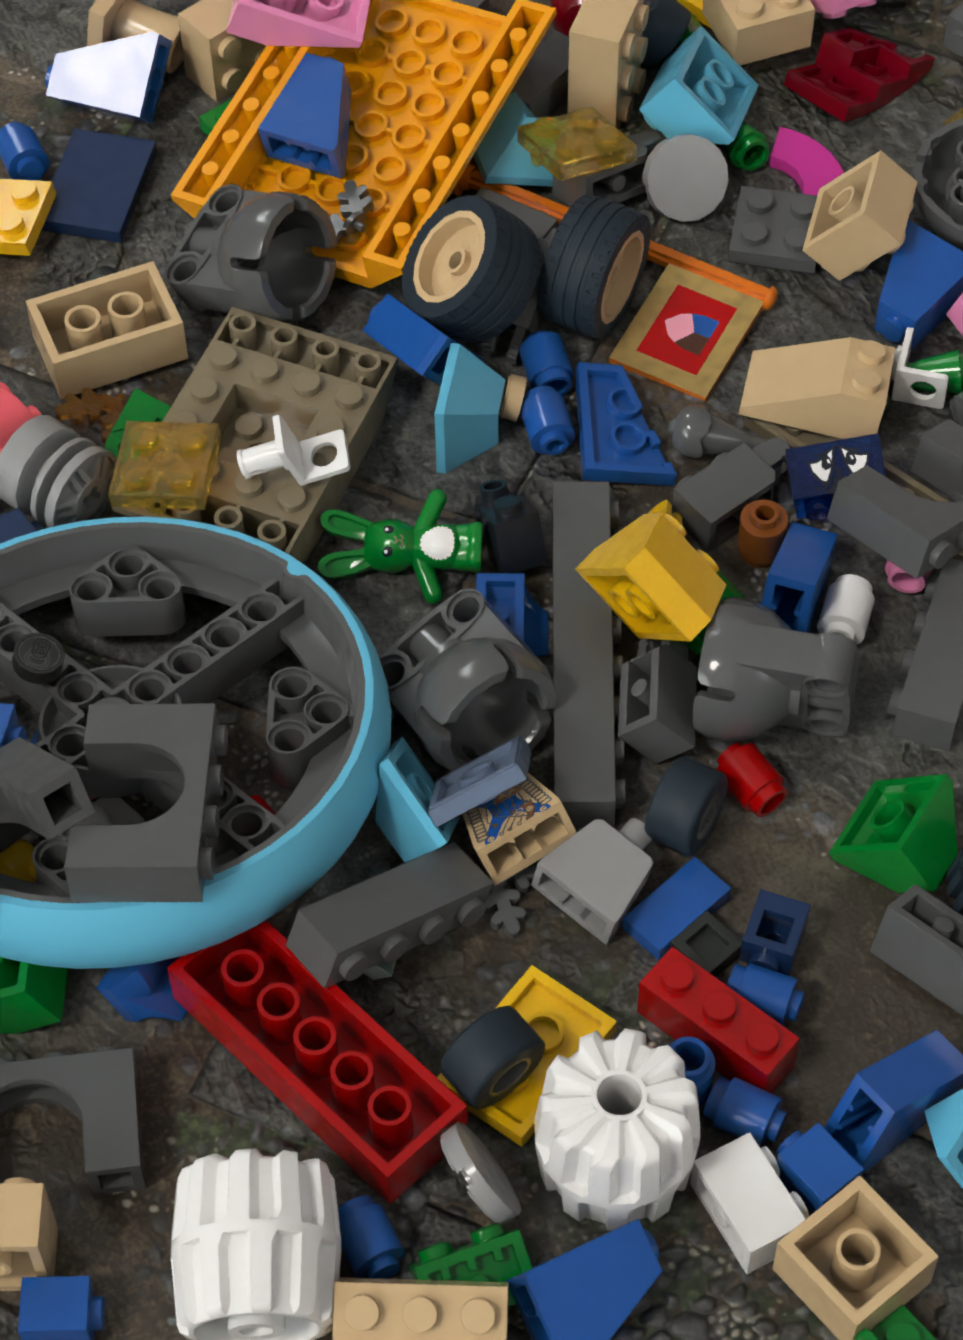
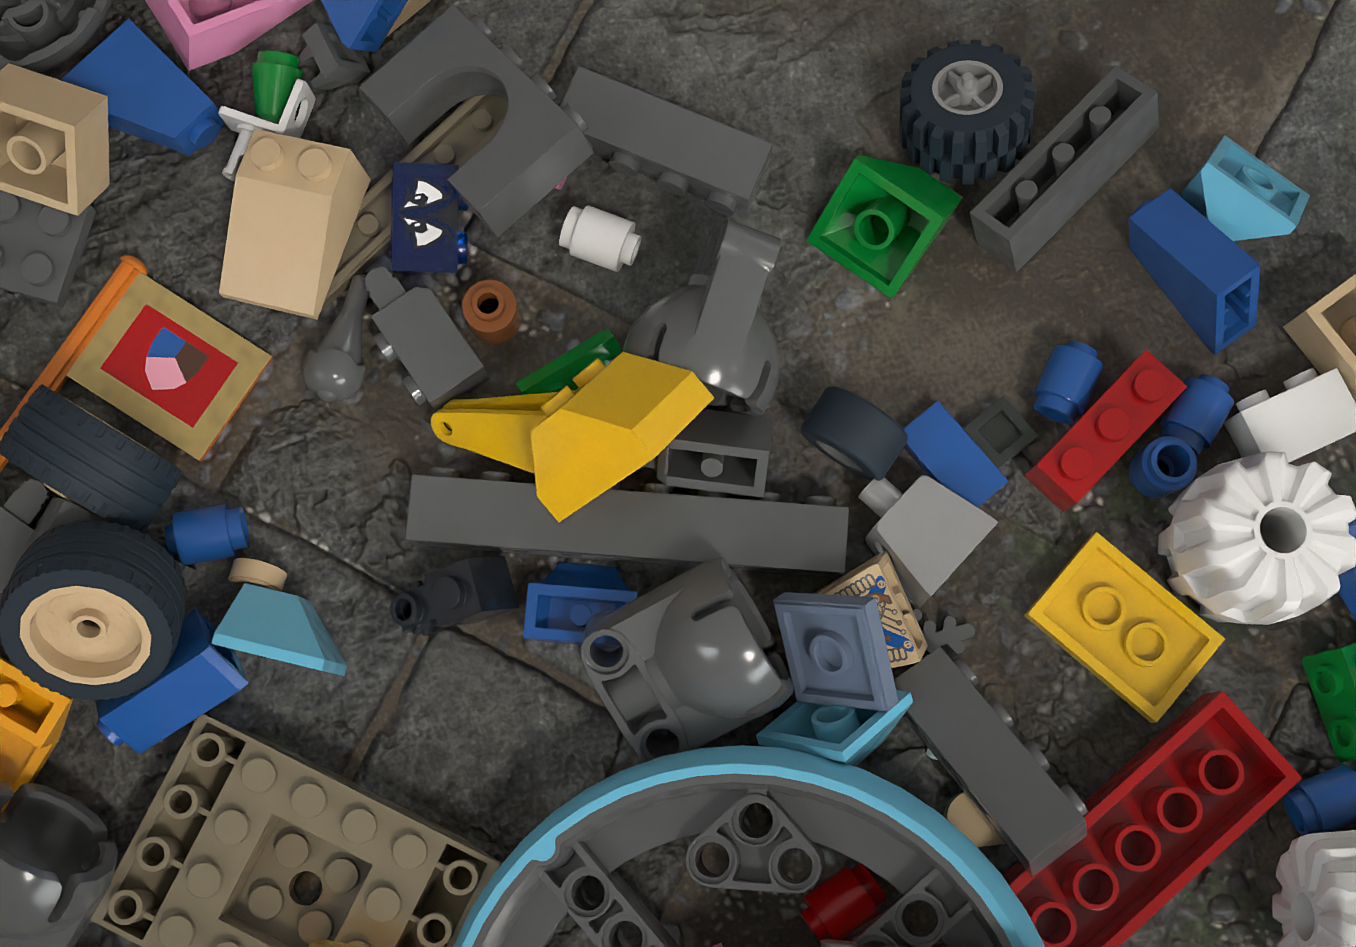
camera: 85 degrees left, 25 degrees up
(295, 455) = (363, 848): white bracket -> none
(396, 545) = (467, 728): green animal -> none
(485, 1178) = (1280, 682): light grey tile -> none
(492, 1057) = (1166, 660): black wheel -> none
(547, 420) = (297, 539): blue brick -> none
(613, 431) = (314, 465): blue wing -> none
(752, 779) = (810, 363): red brick -> none
(774, 932) = (998, 344): dark blue brick -> none
(800, 575) = (570, 283): blue slope -> none
(815, 1166) = (1263, 354): blue brick -> none

